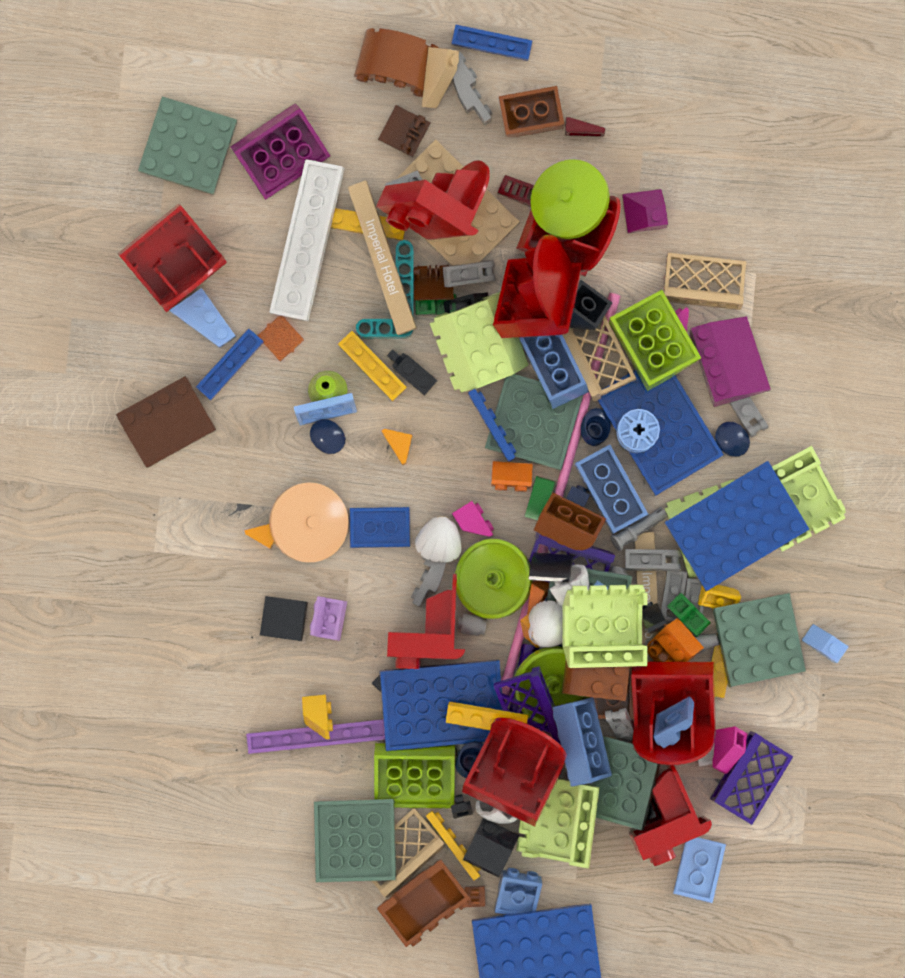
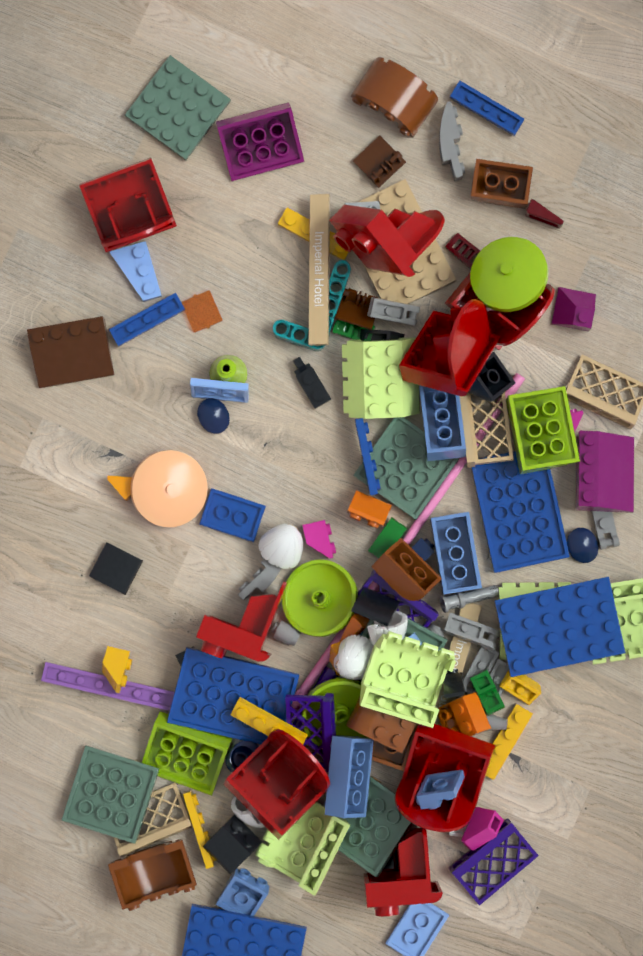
camera: 15 degrees right, 0 degrees up
(306, 240) = (256, 230): white plate -> none
(328, 618) = (156, 582): lavender bracket -> none
(372, 366) = (276, 365): yellow plate -> none
(399, 442) = (277, 444): light orange slope -> none
(439, 73) = (429, 120): tan slope -> none
(461, 808) = (218, 797): black tile -> none
(476, 895) = (204, 882): dark orange tile -> none
(595, 427) = (460, 491): dark blue hat -> none
(620, 724) = (390, 772): light grey plate -> none
(629, 439) = (489, 514): light blue wheel -> none
(759, 640) = (544, 738): sand green plate -> none
(825, 643) = (603, 762): light blue slope -> none

